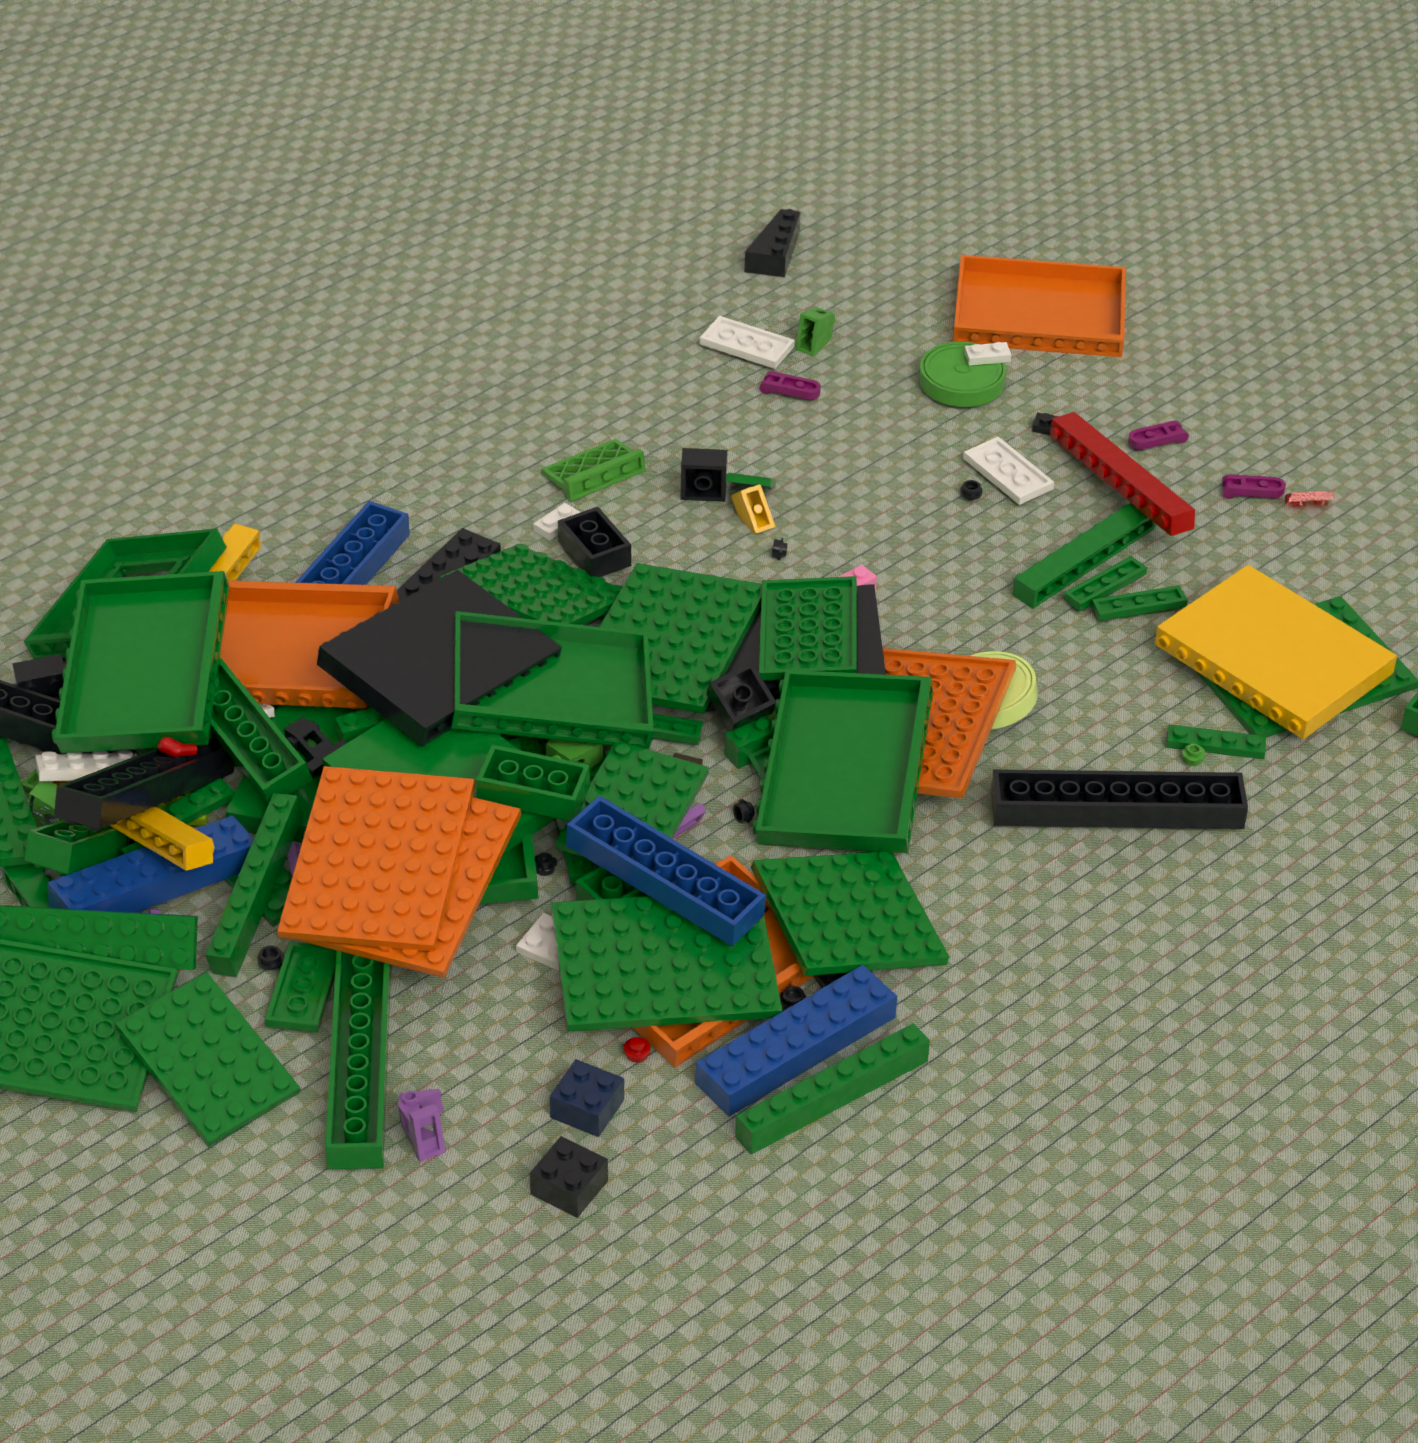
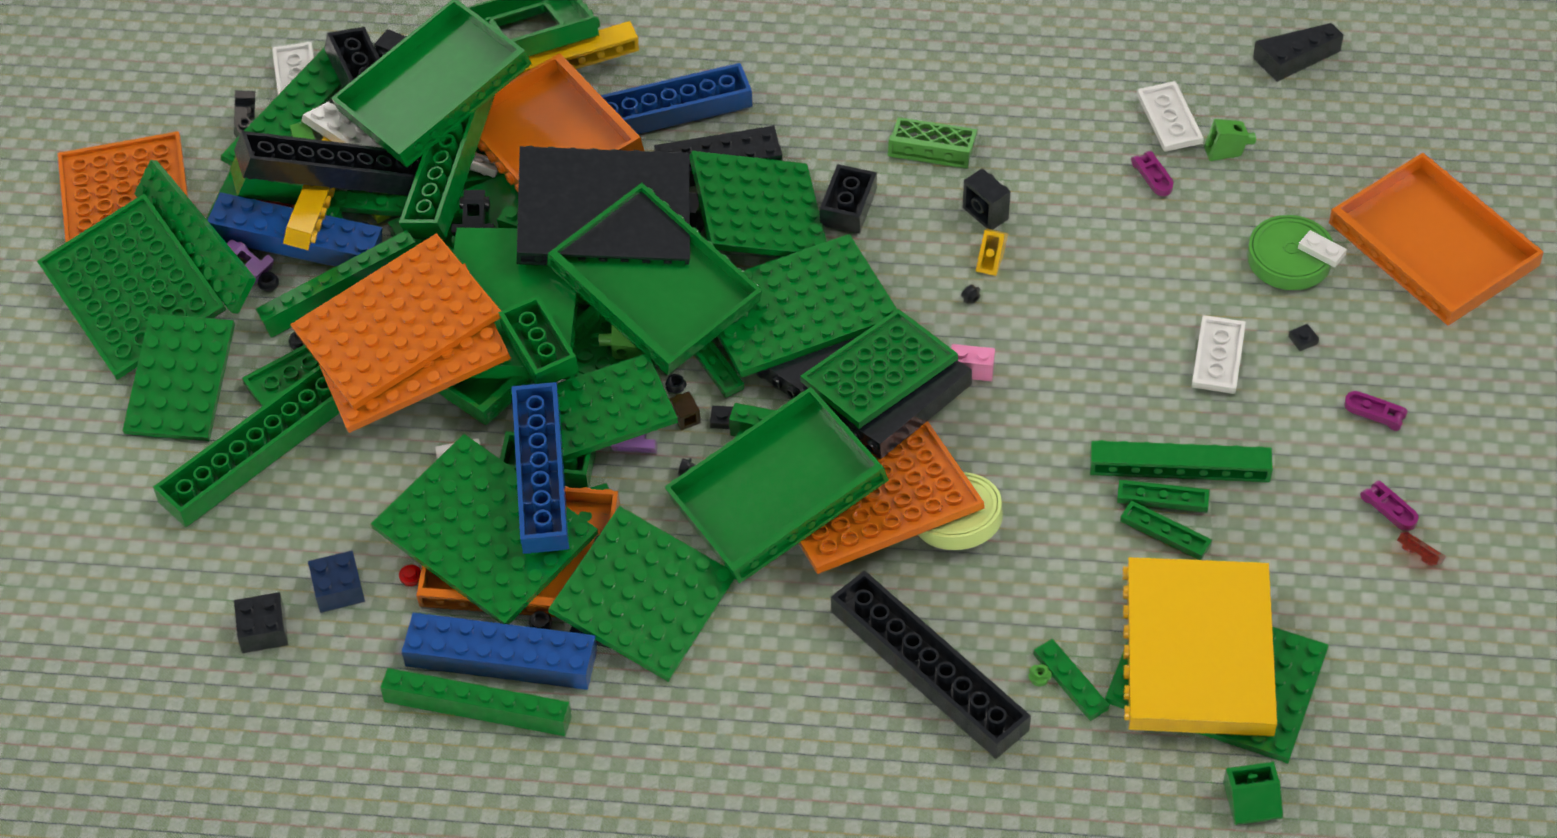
camera: 50 degrees right, 10 degrees up
(175, 748) = (383, 157): red arm -> none
(418, 1111) = (231, 507): medium lavender tile -> none
(548, 525) = (865, 162): white plate -> none
(716, 759) = (720, 417): none -> black plate
(741, 697) = (766, 383): black brick -> none
(751, 480) = (1016, 227): green tile -> none
(971, 490) = (1170, 349): black plate -> none
(1123, 474) = (1284, 420): red brick -> none

